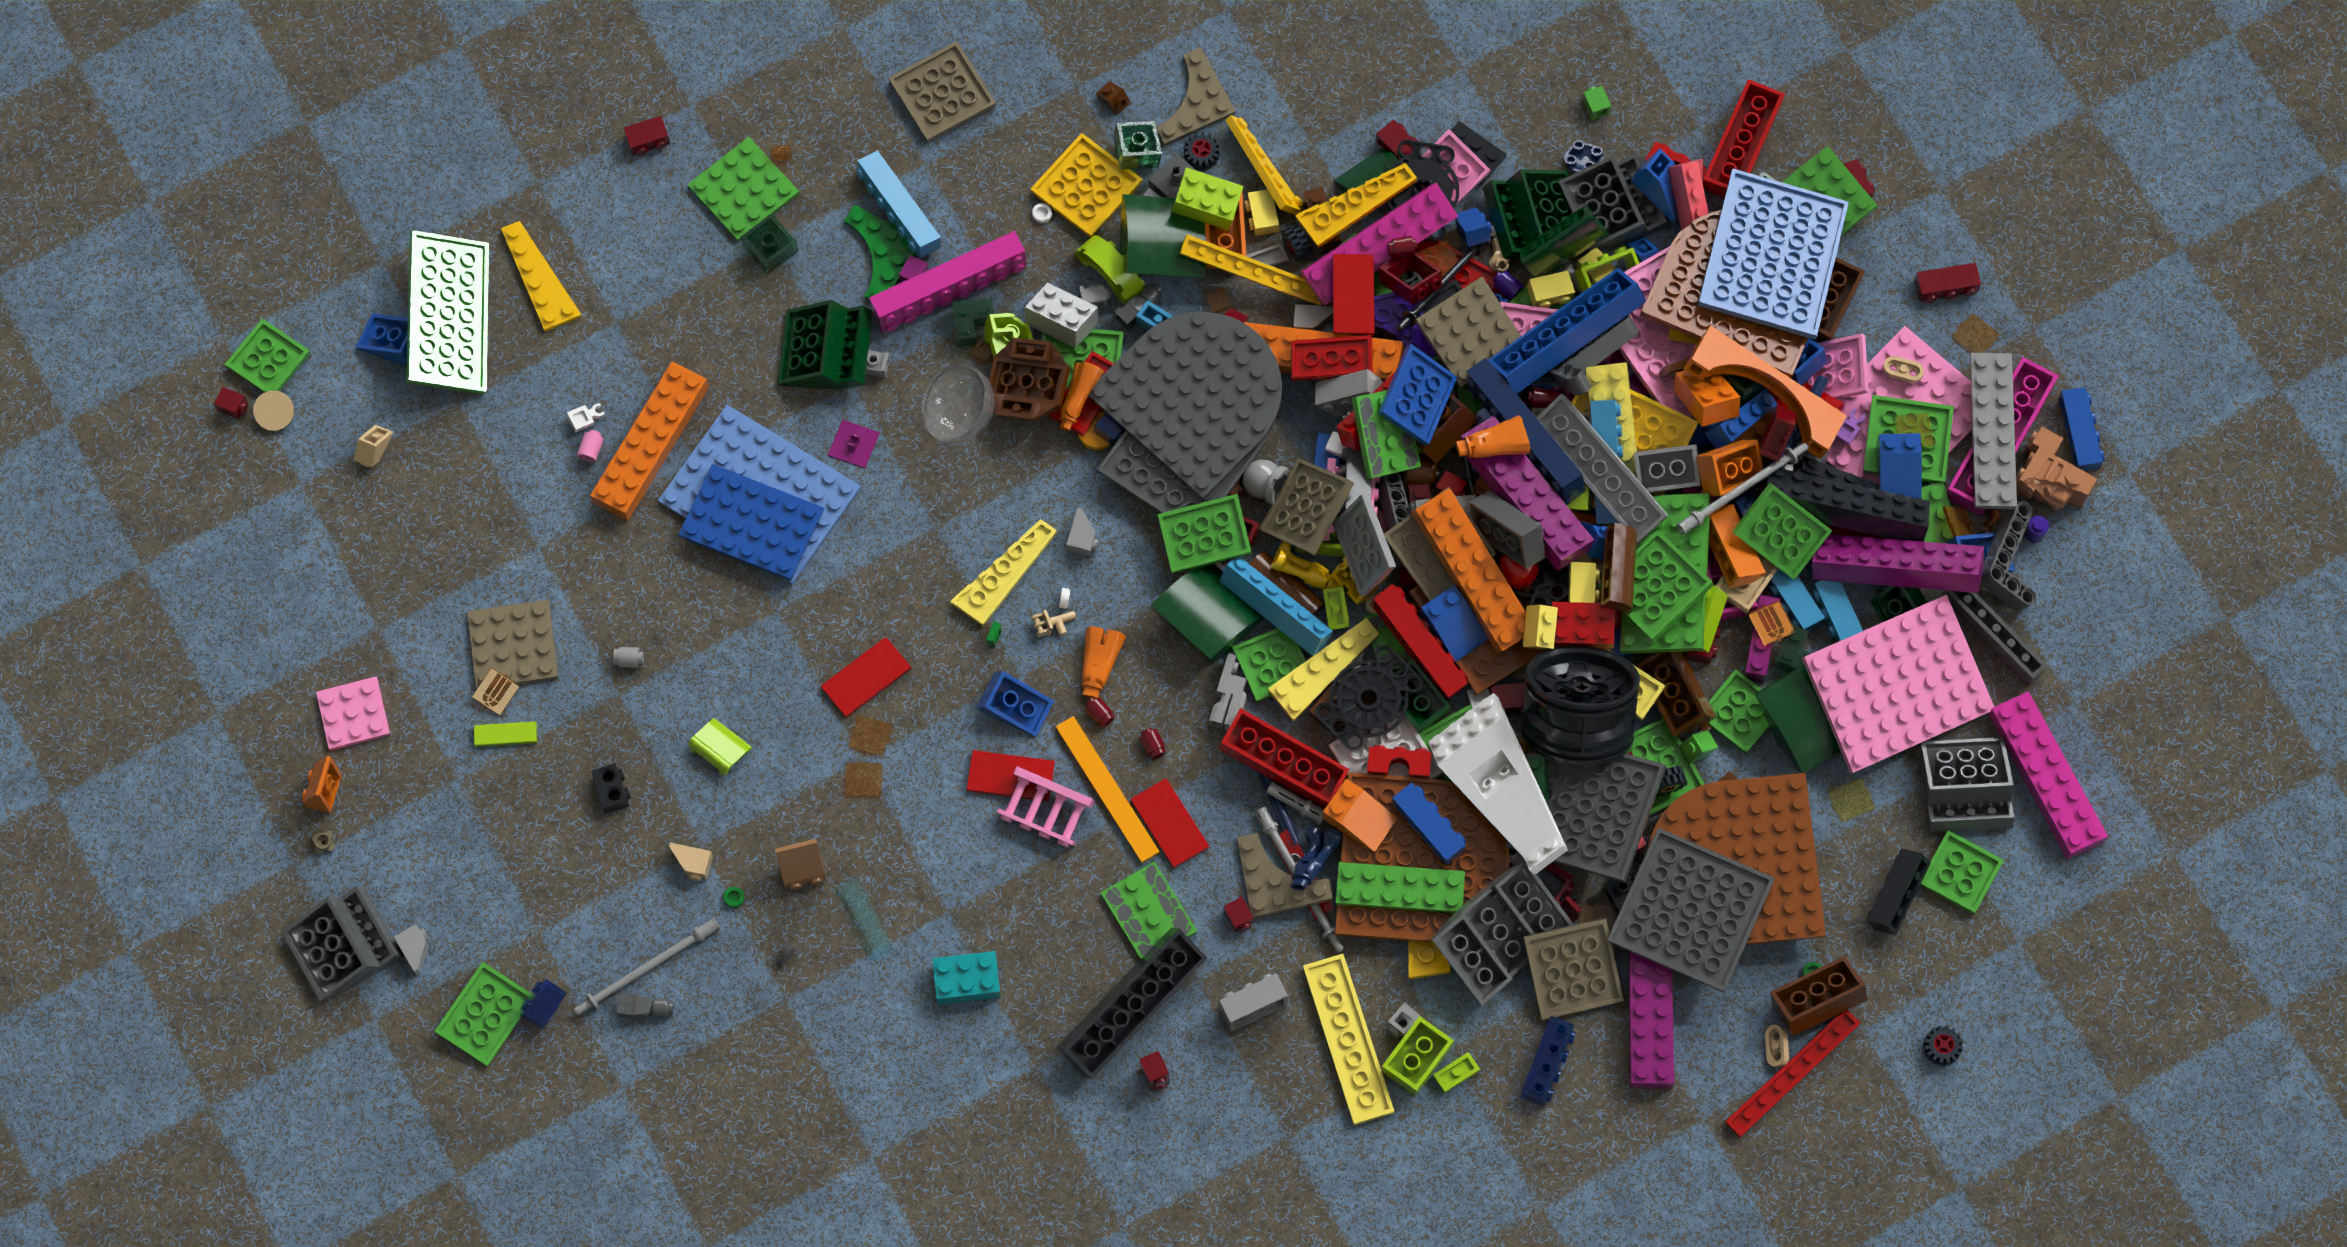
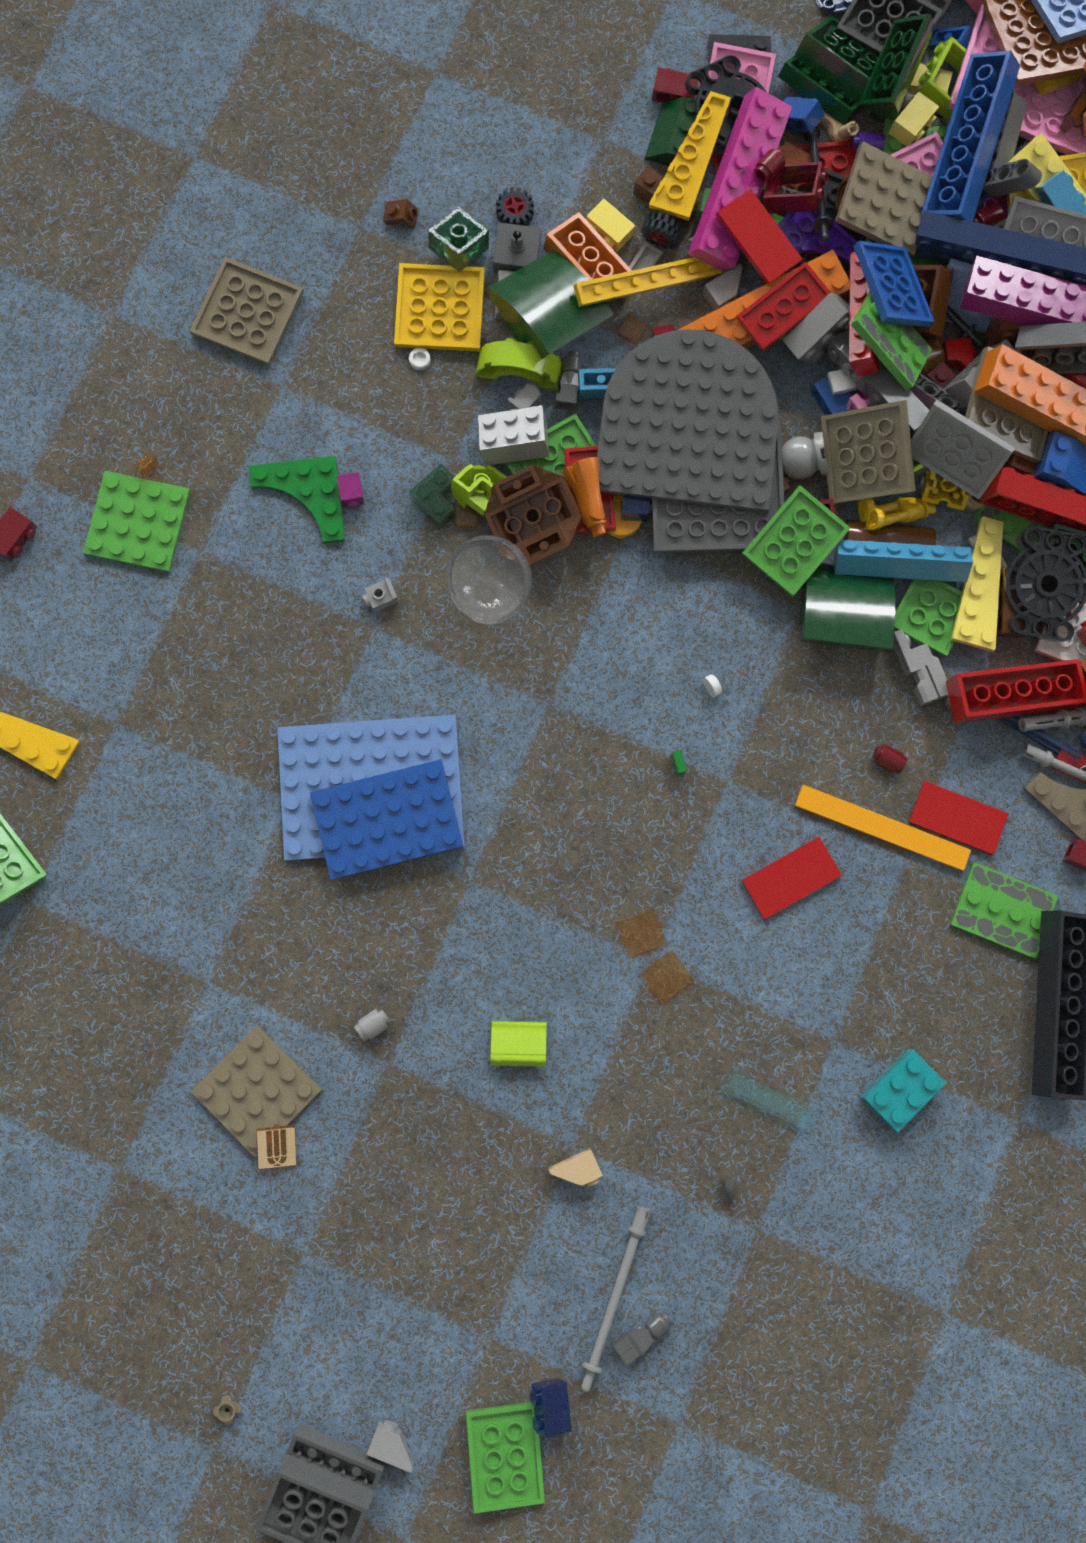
camera: 45 degrees left, 10 degrees up
(322, 785) = (186, 1363): orange slope -> none
(353, 713) = (158, 1266): bright pink plate -> none
(505, 734) = (315, 1178): lime tile -> none
(583, 418) = (155, 835): white plate -> none
(590, 446) = (183, 855): bright pink brick -> none
(607, 789) = (448, 1163): black brick -> none
(649, 441) = (234, 811): orange brick -> none
(734, 897) = (639, 1172): green tile -> none
(769, 243) = (201, 554): clear green brick -> none
(800, 864) = (683, 1102): medium nougat slope -> none
(825, 346) = (325, 612): dark green slope -> none
(853, 443) = (417, 681): magenta piece -> none
(866, 677) = (596, 883): red tile -> none
(898, 204) = (289, 438): brick -> none
(948, 282) = (390, 476): dark pink brick -> none
(992, 586) = (642, 716): light yellow wing -> none
(1015, 703) = (744, 811): blue slope -> none
(1043, 787) = (854, 863): bright pink fence -> none
(1048, 623) = (714, 719): tan arm -> none
(1082, 535) = (683, 618): light grey slope -> none
(1099, 658) = (785, 717): orange piece -> none
(1099, 712) = (823, 764): dark red brick -> none
(1204, 102) = (481, 163): dark tan plate -> none
(1207, 198) = (564, 240): lime brick -> none
(1270, 176) = (625, 199): yellow wing -> none
(1336, 608) = (948, 525): lime plate -> none
(1501, 439) = (1010, 268): orange piece -> none

